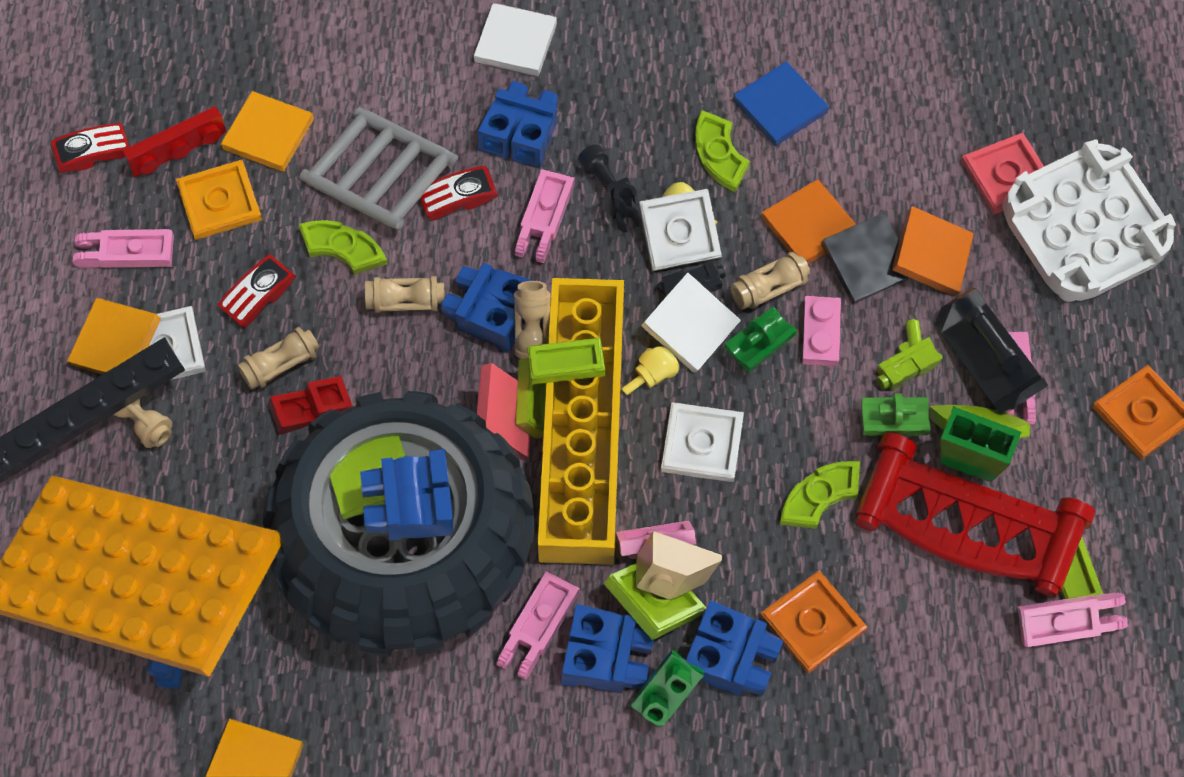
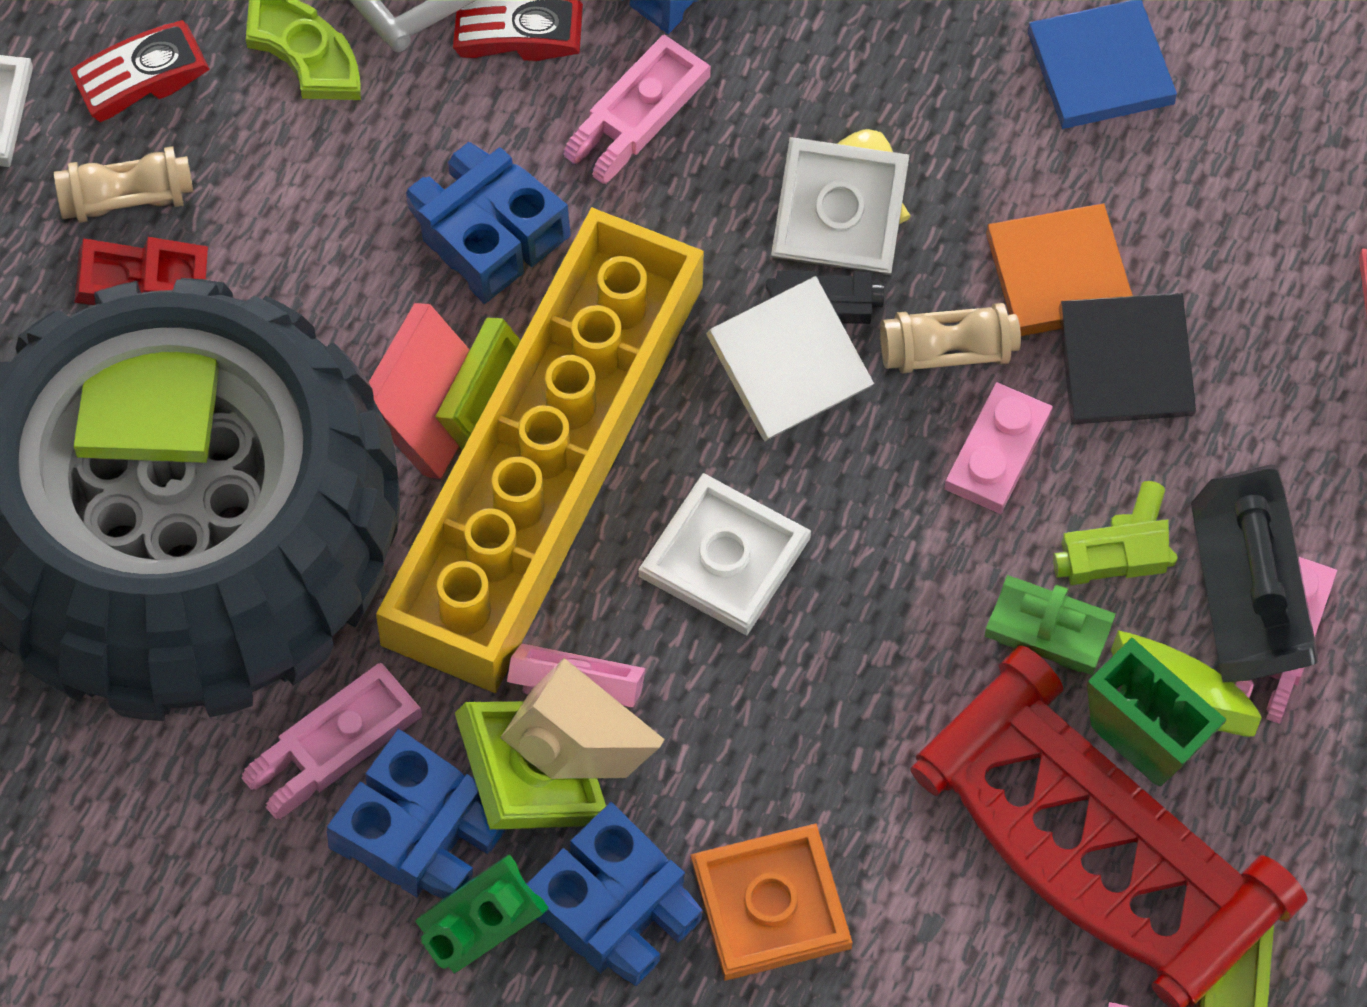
camera: 20 degrees right, 0 degrees up
(388, 294) = (335, 147): tan piece -> none
(414, 497) = (178, 456): blue hips -> none
(532, 305) = (539, 240): tan piece -> none
(566, 361) = (550, 343): lime tile -> none
(620, 193) = (756, 51): black bar -> none
(654, 368) = (705, 407): light yellow piece -> none
(717, 151) = (962, 104): lime tile -> none
(760, 339) = (887, 423): green hips -> none
(819, 491) = (876, 701): lime tile -> none
(933, 251) = (1238, 385): orange tile -> none

